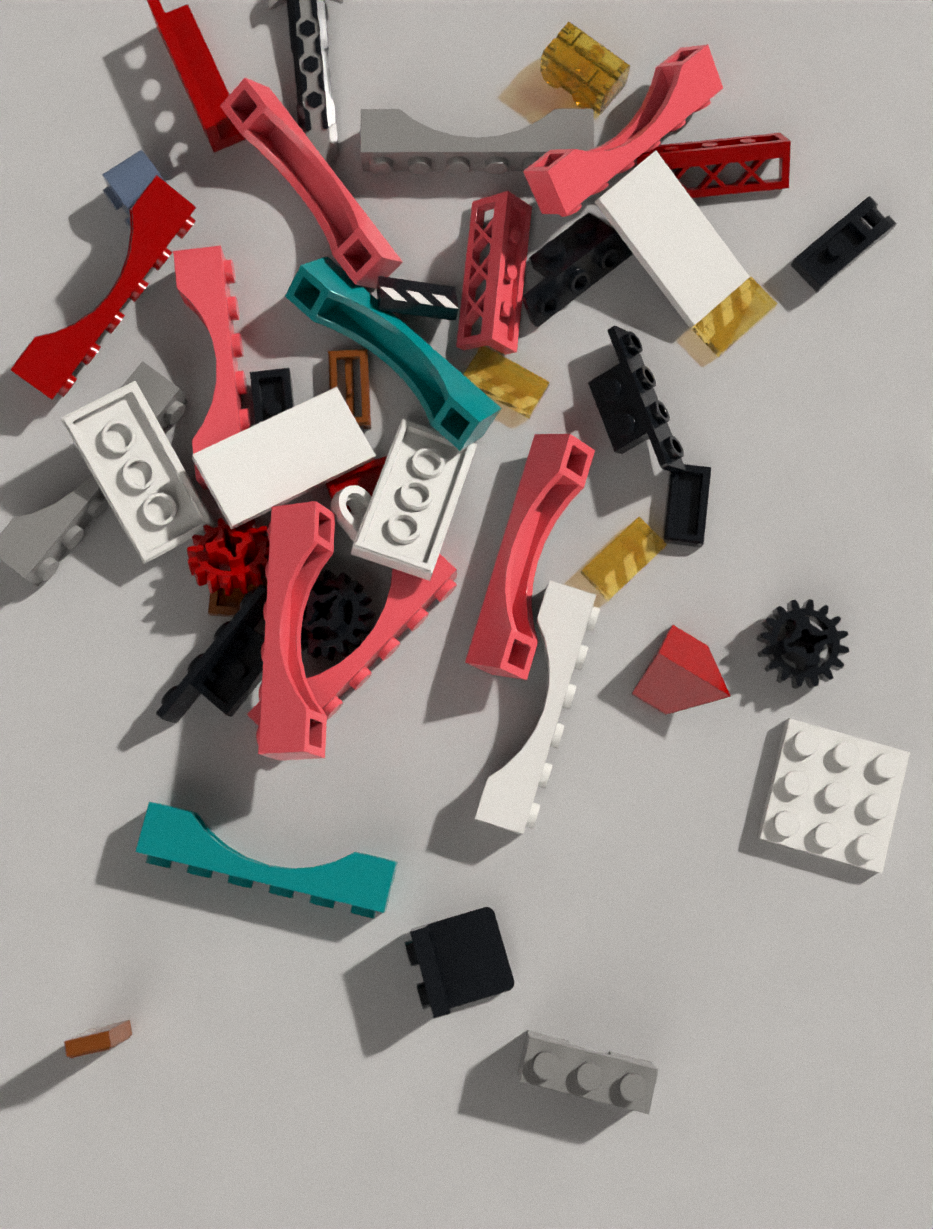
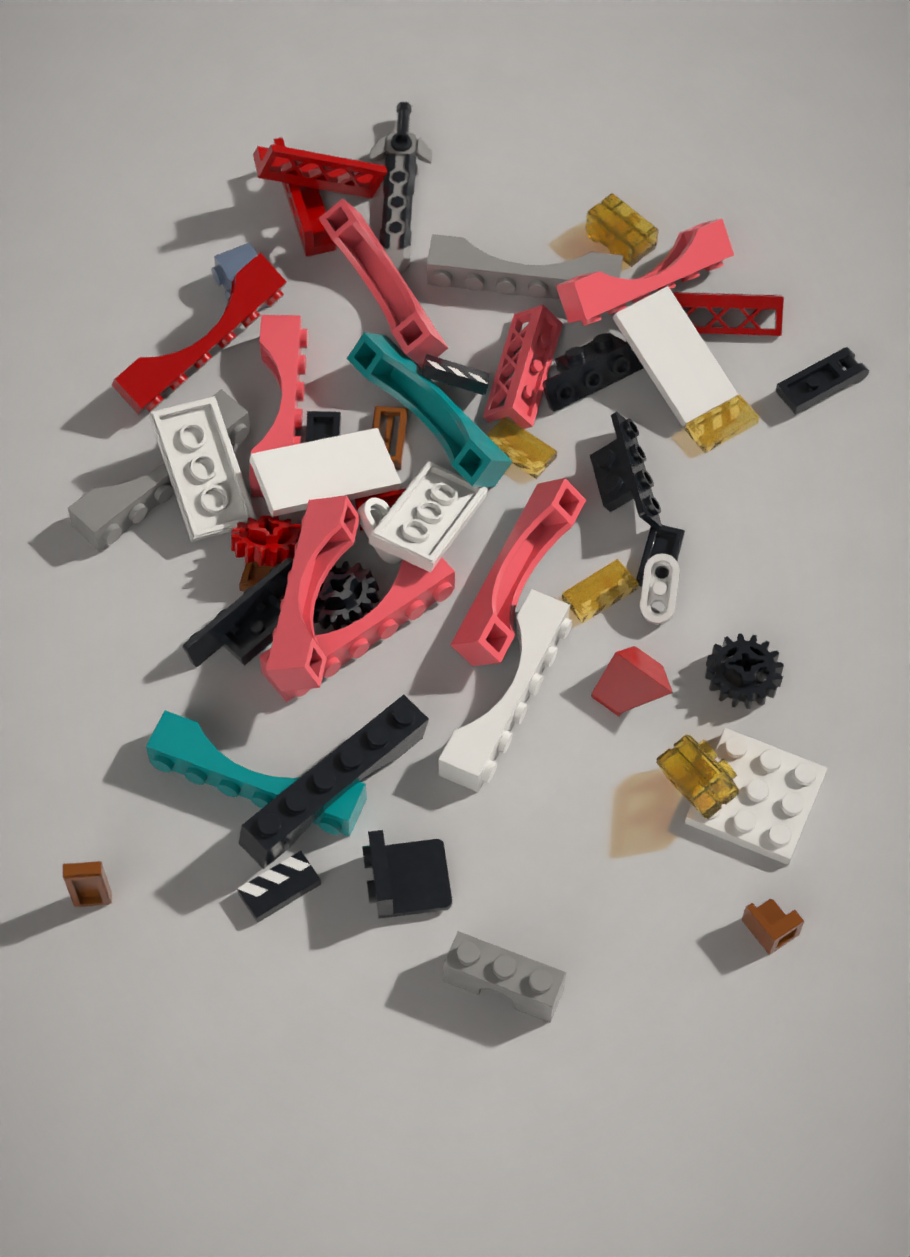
camera: 10 degrees right, 20 degrees down
(207, 40) = (318, 170): none -> red fence
(317, 990) = (279, 886): none -> black tile
(359, 865) = (297, 807): none -> black arch
(694, 552) = (659, 589): none -> white plate
(771, 795) = (698, 775): none -> clear yellow brick
(872, 956) = (772, 925): none -> dark orange panel

